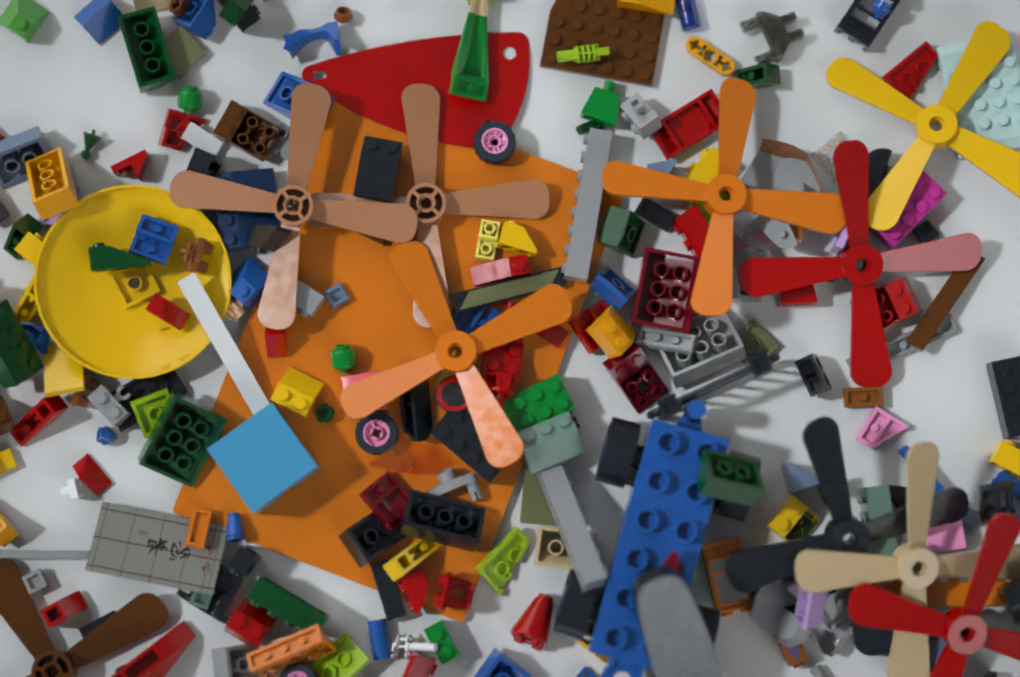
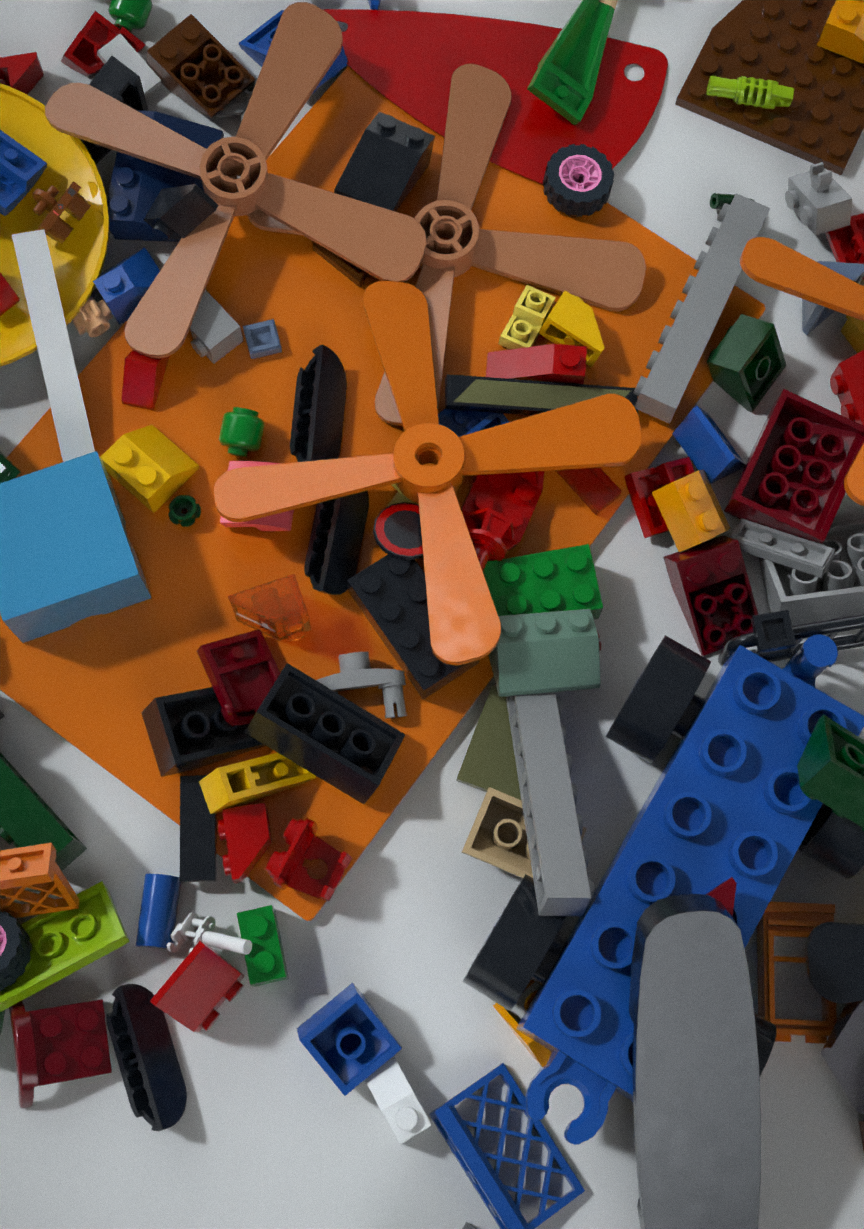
camera: 15 degrees right, 10 degrees down
(383, 333) = (319, 408): none -> black brick
(386, 439) = (255, 545): black wheel -> none
(500, 562) = (408, 833): lime wing -> none
(534, 623) = (434, 959): red cone -> none
(602, 105) = (760, 173): green torso -> none
(655, 214) = (806, 356): black tile -> none

